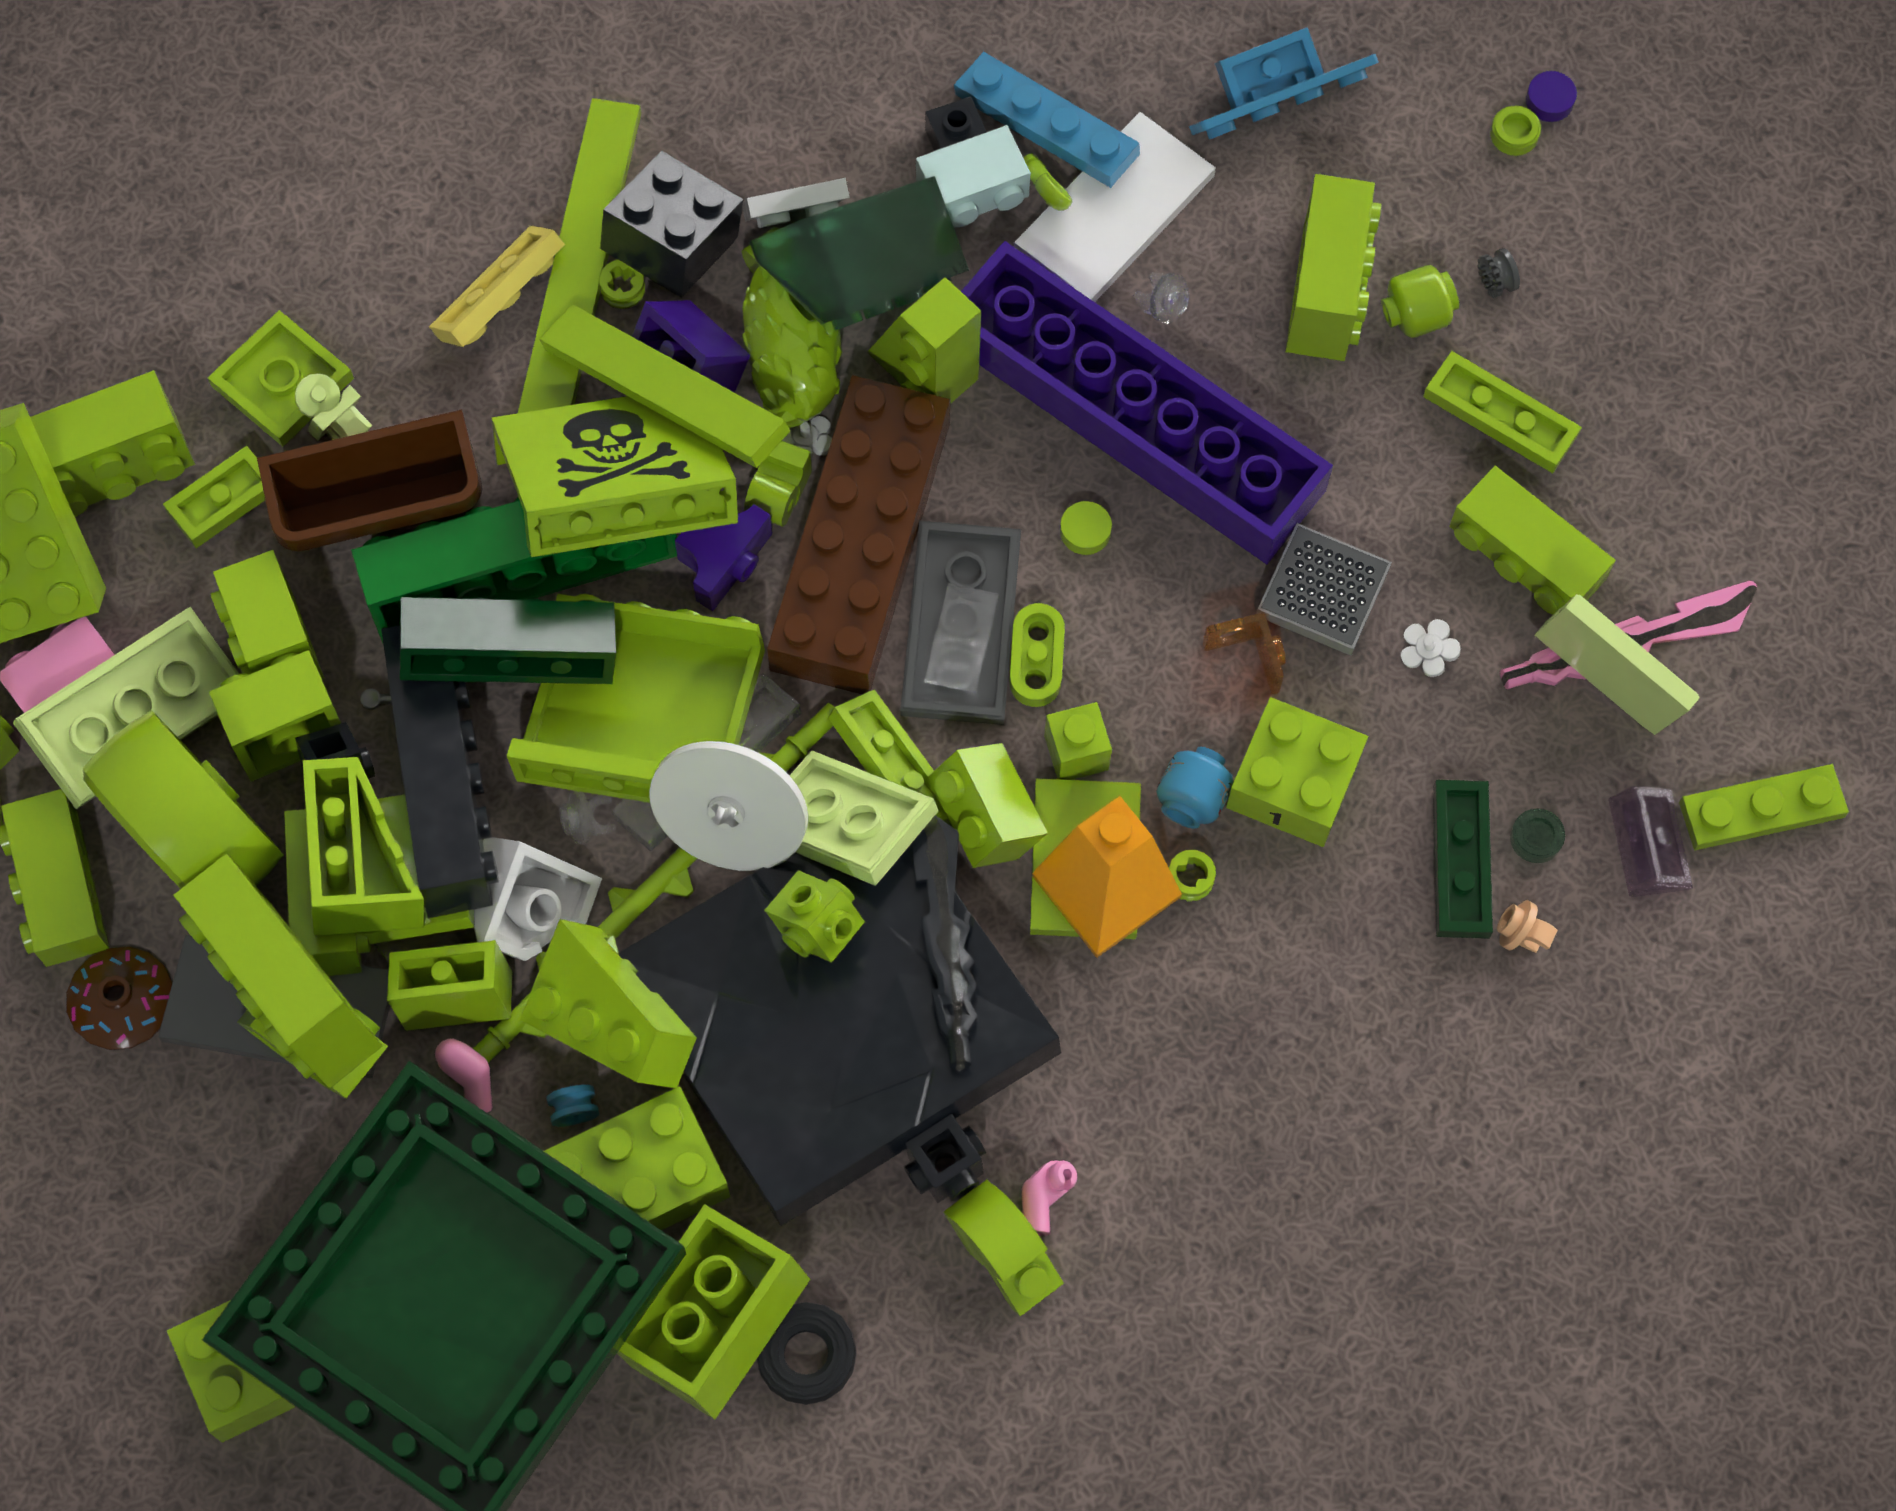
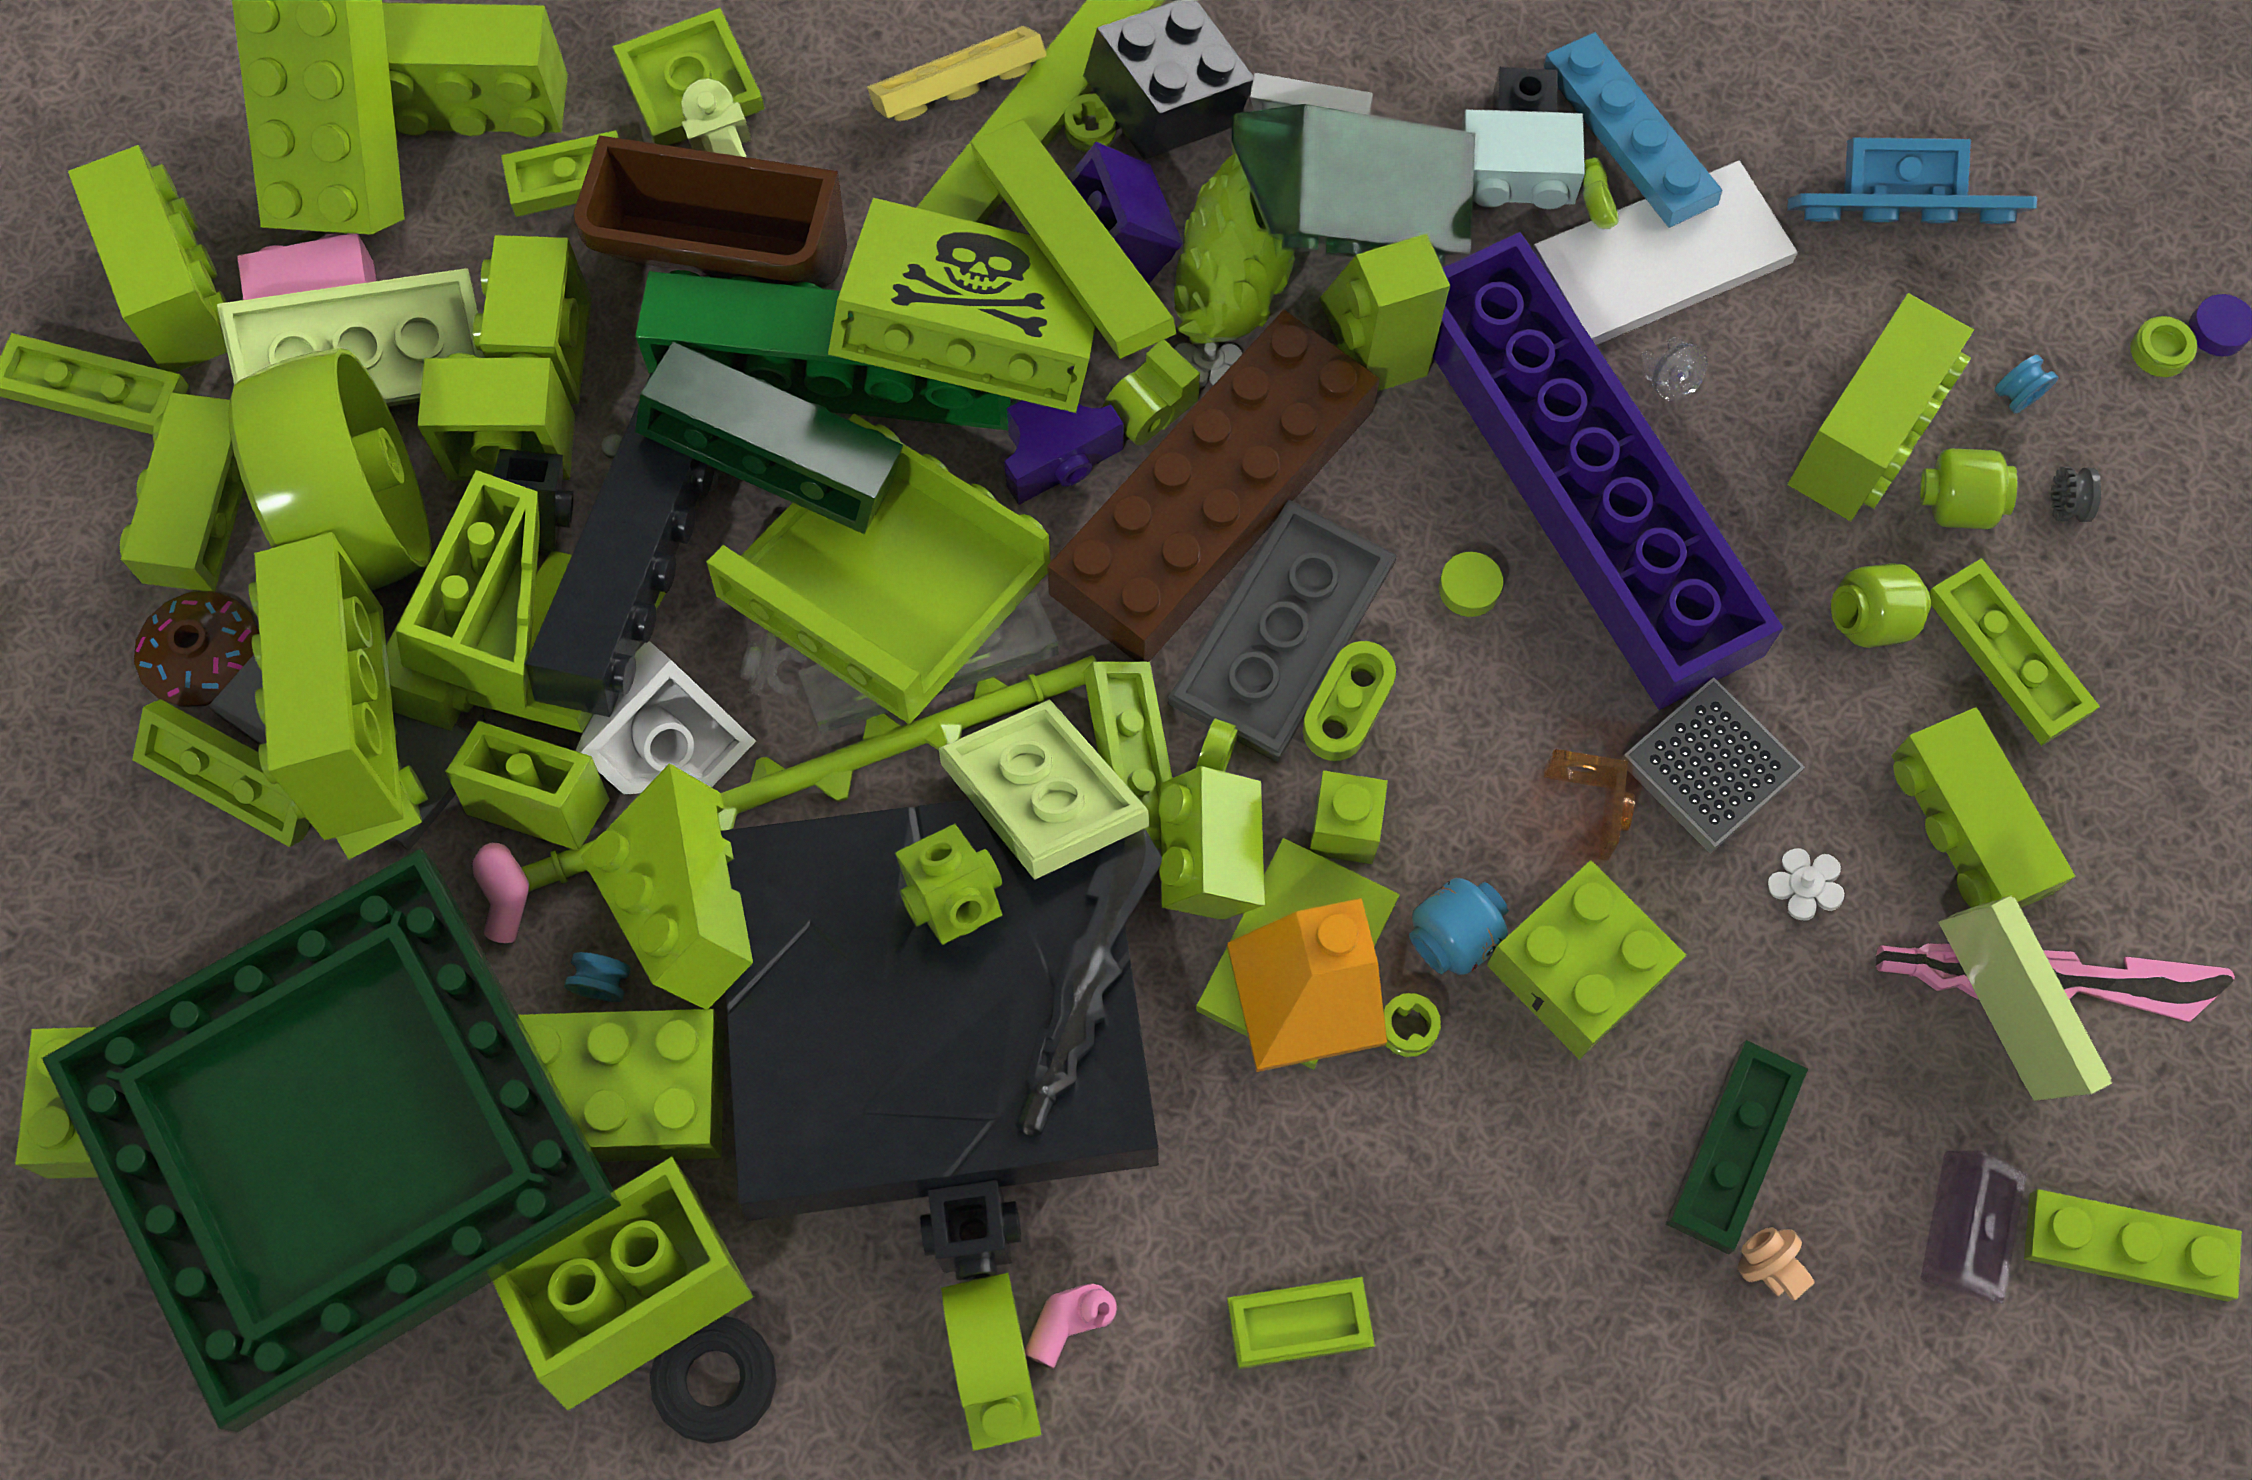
camera: 25 degrees right, 0 degrees up
(200, 1080) = (215, 770): none -> lime plate
(728, 806) = (914, 718): white piece -> none
(956, 731) = (1218, 745): none -> lime tile
(962, 638) = (1272, 646): clear slope -> none
(1210, 1122) = (1300, 1323): none -> lime tile
(1394, 417) = (1881, 605): none -> lime head
(1427, 202) = (2026, 383): none -> dark azure bush
(1537, 835) = (1840, 1158): clear green tile -> none

